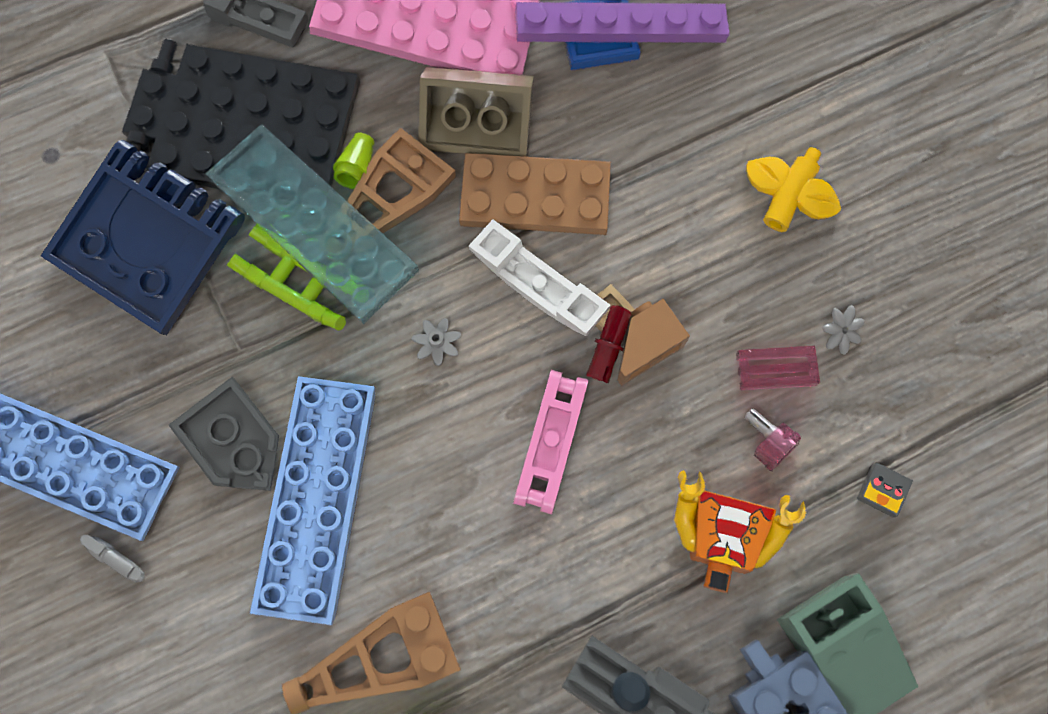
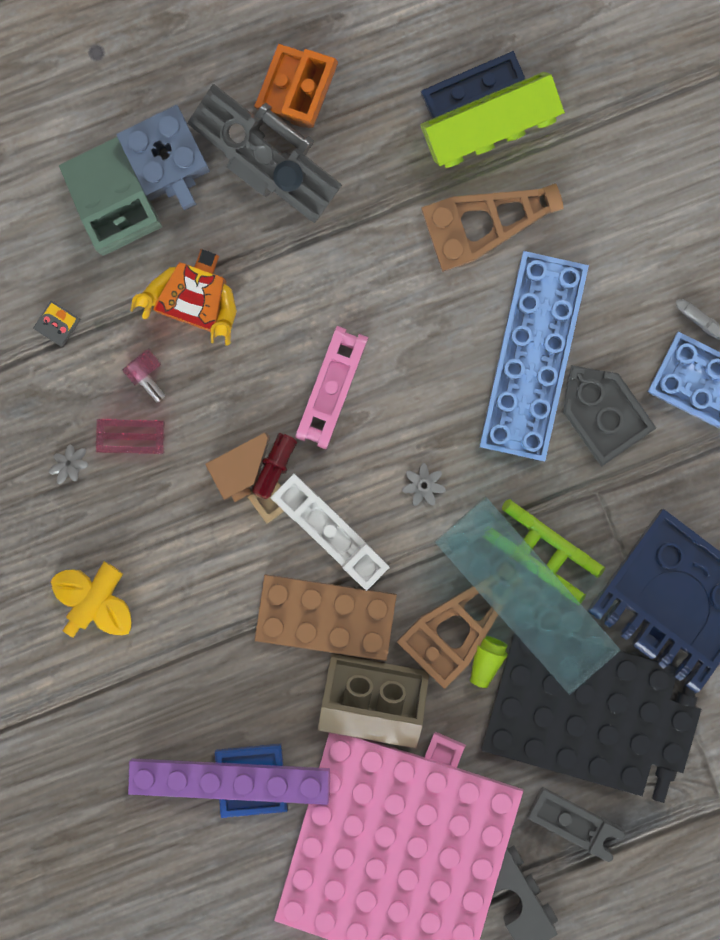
camera: 175 degrees left, 15 degrees up
(396, 71) = (445, 750): none -> bright pink plate

